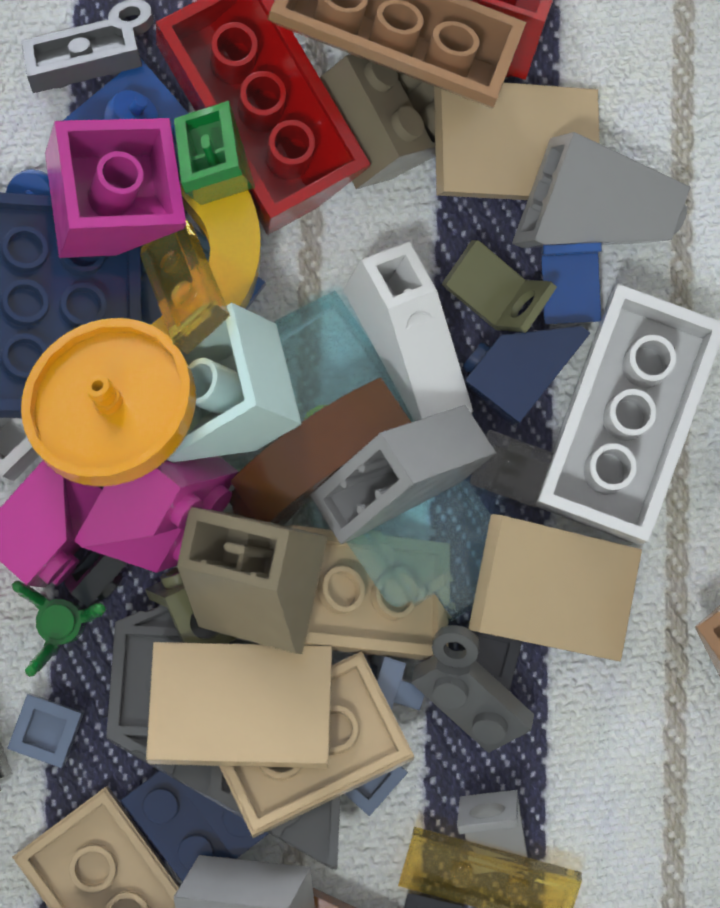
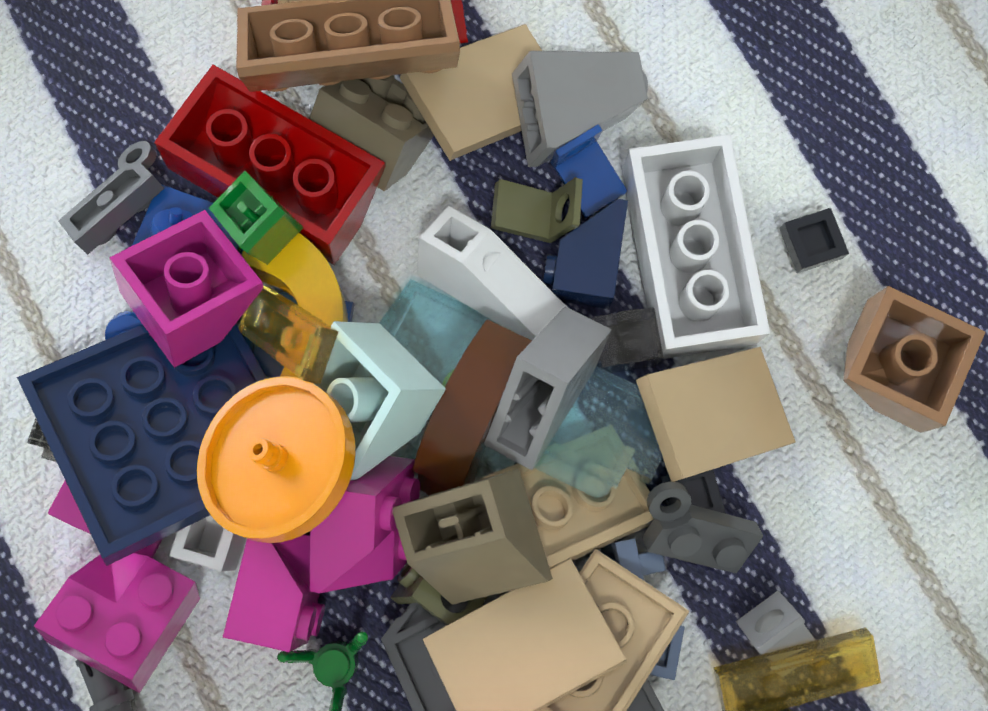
camera: 30 degrees left, 5 degrees down
(94, 577) = (344, 612): black plate -> none

